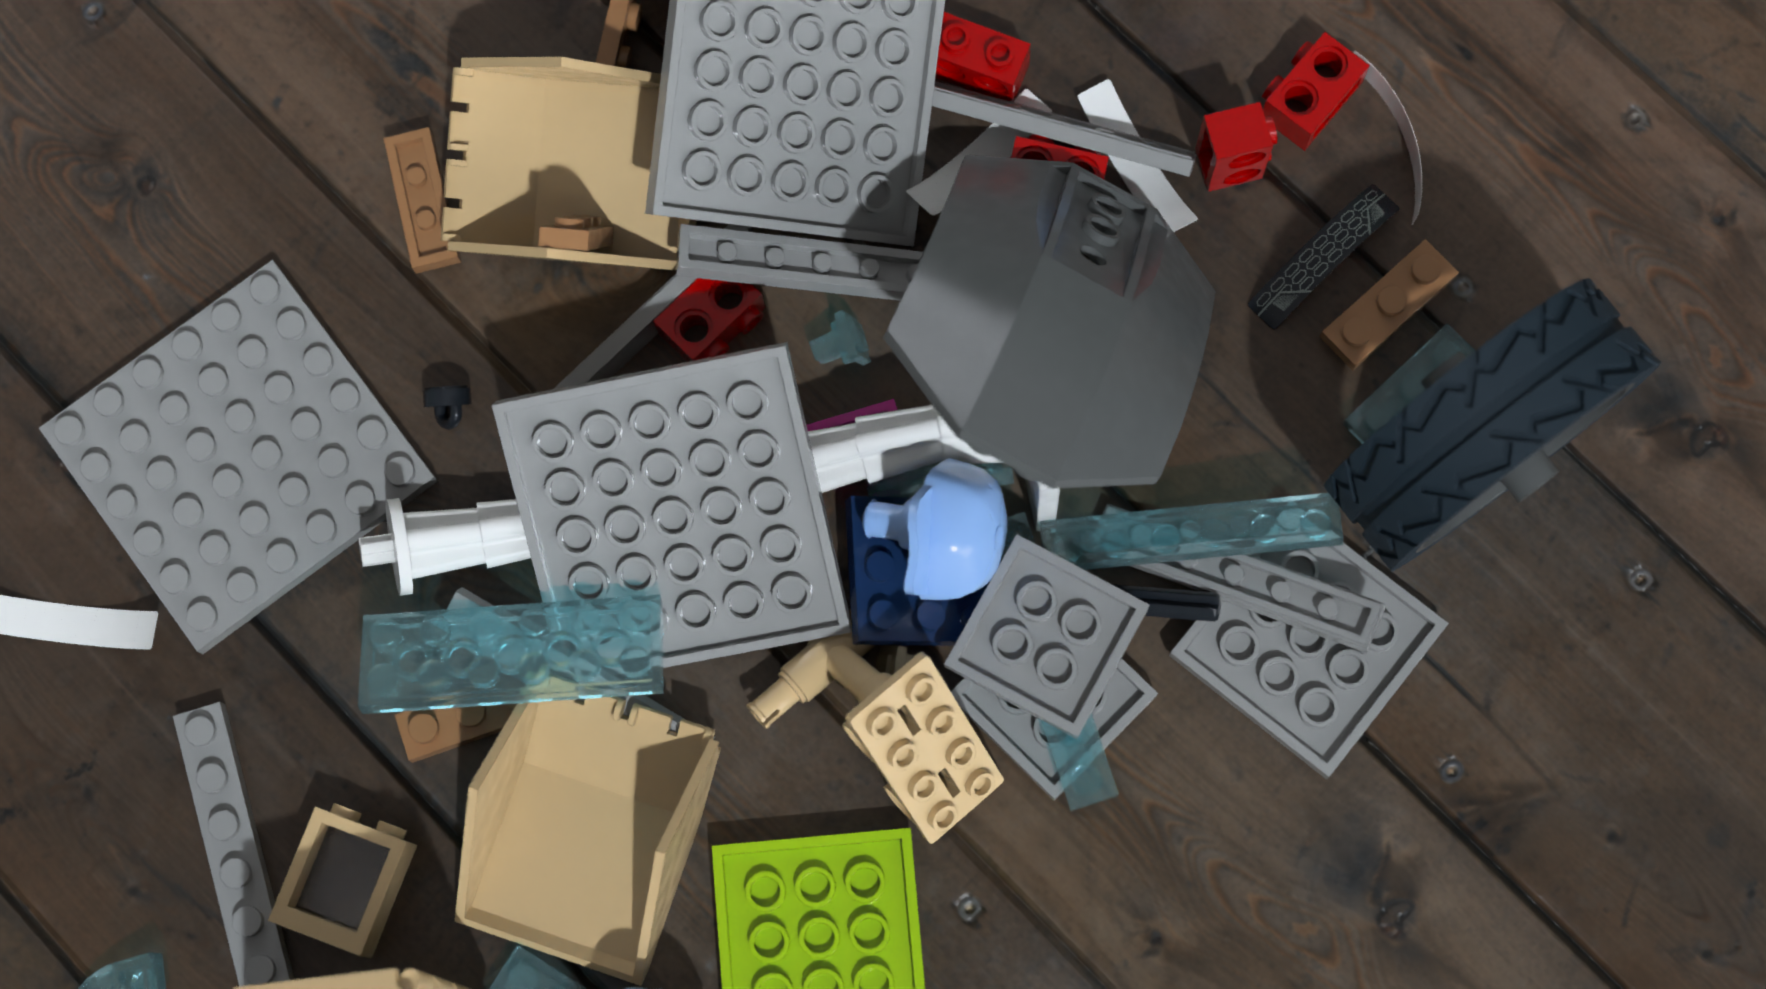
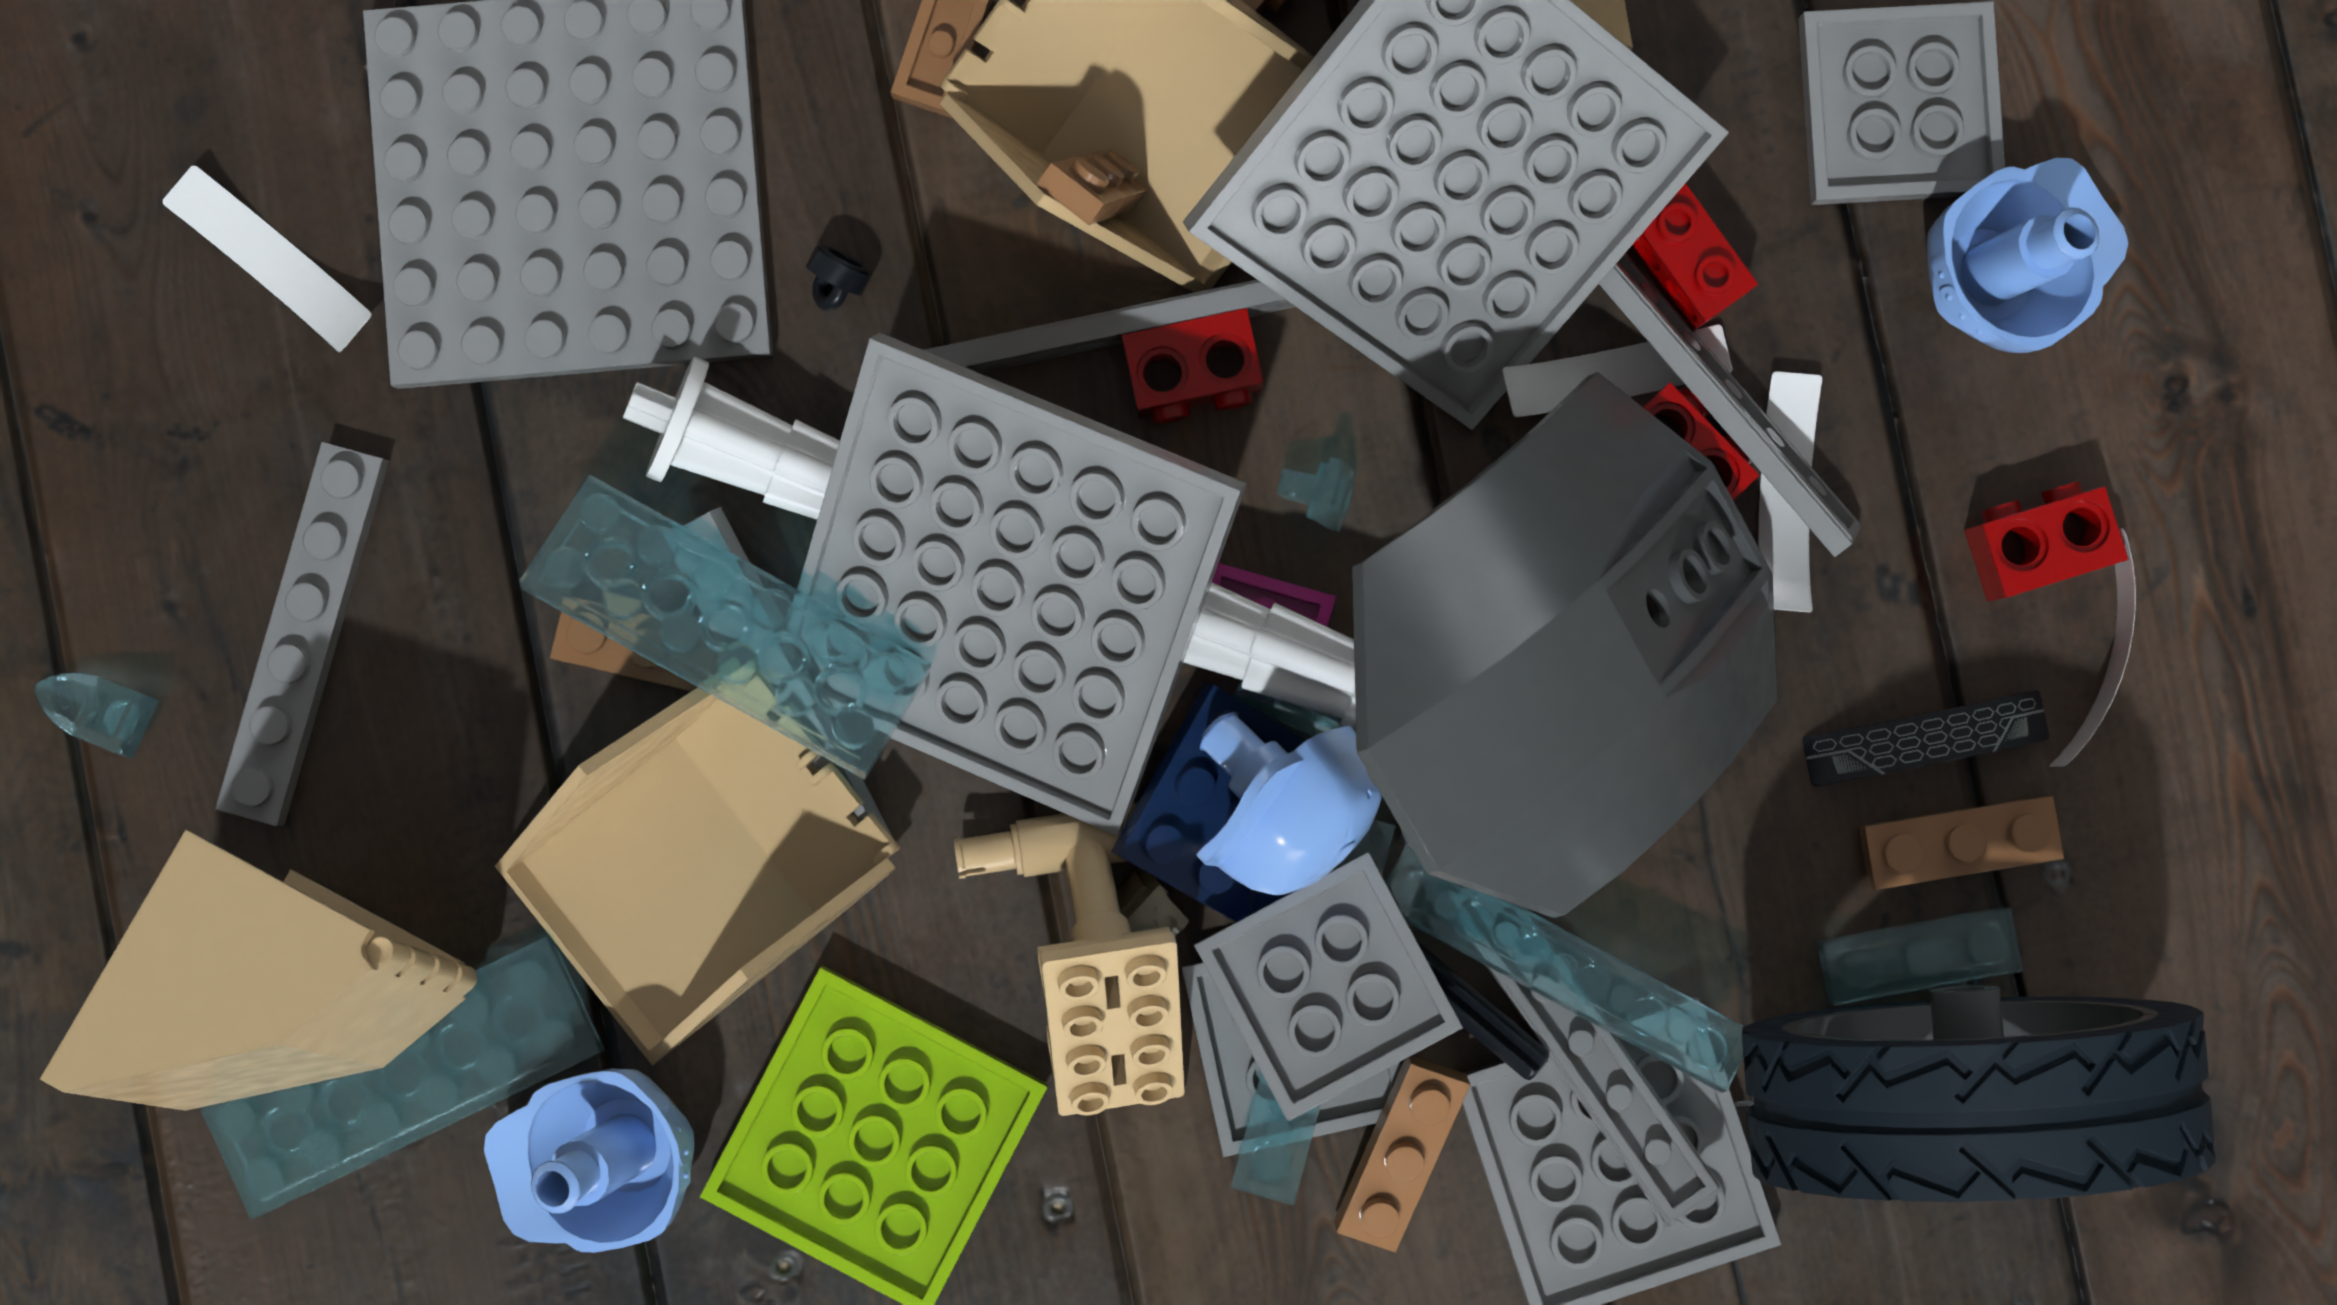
camera: 25 degrees right, 10 degrees up
(346, 876) = (399, 747): window -> none
(794, 262) = (1333, 379): light grey plate -> none
(1167, 722) = (1401, 1153): none -> medium nougat plate
(1235, 146) = (1911, 556): red brick -> none

